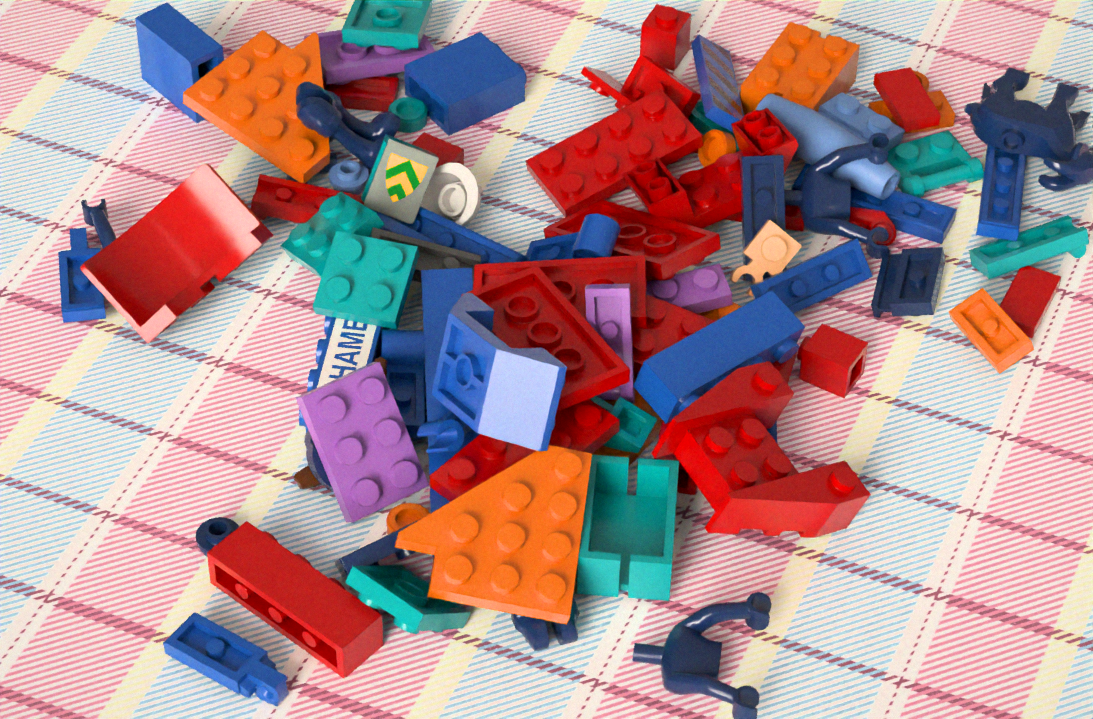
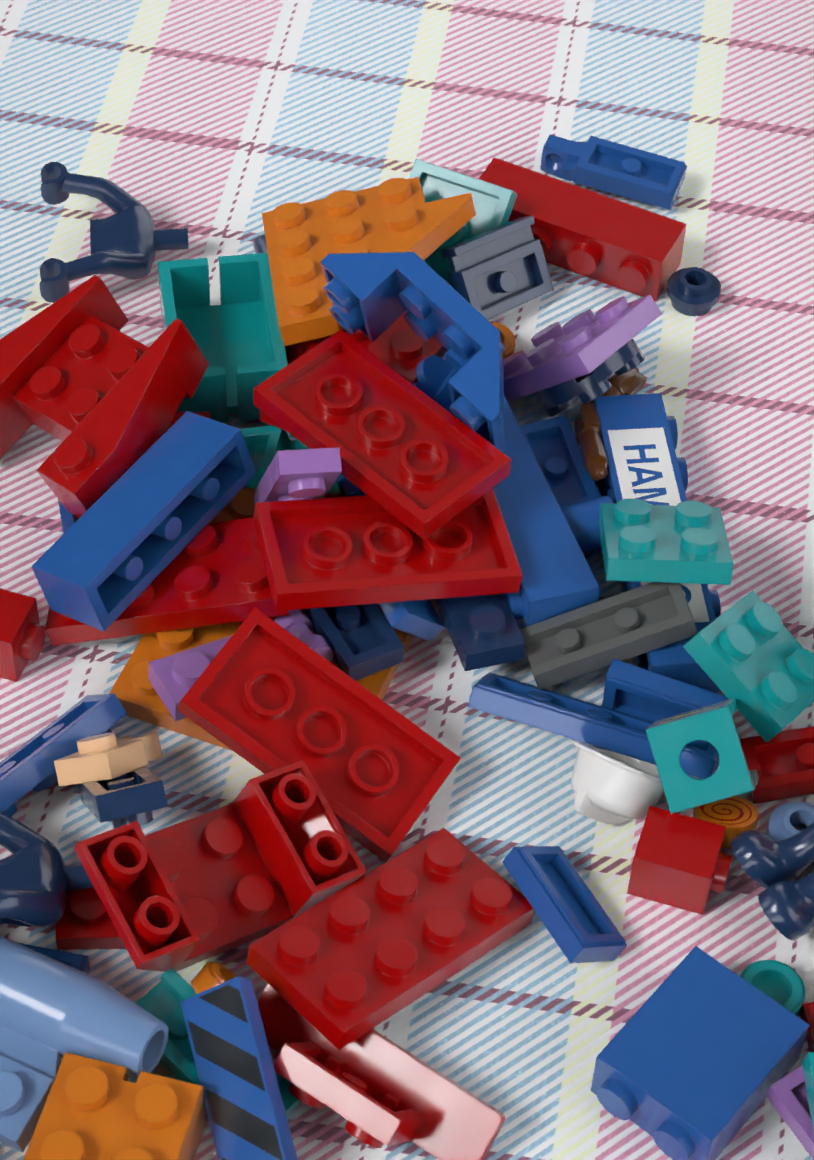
camera: 165 degrees right, 5 degrees up
(508, 161) = (564, 904): none -> blue tile
(593, 240) = (394, 672): blue plate -> none

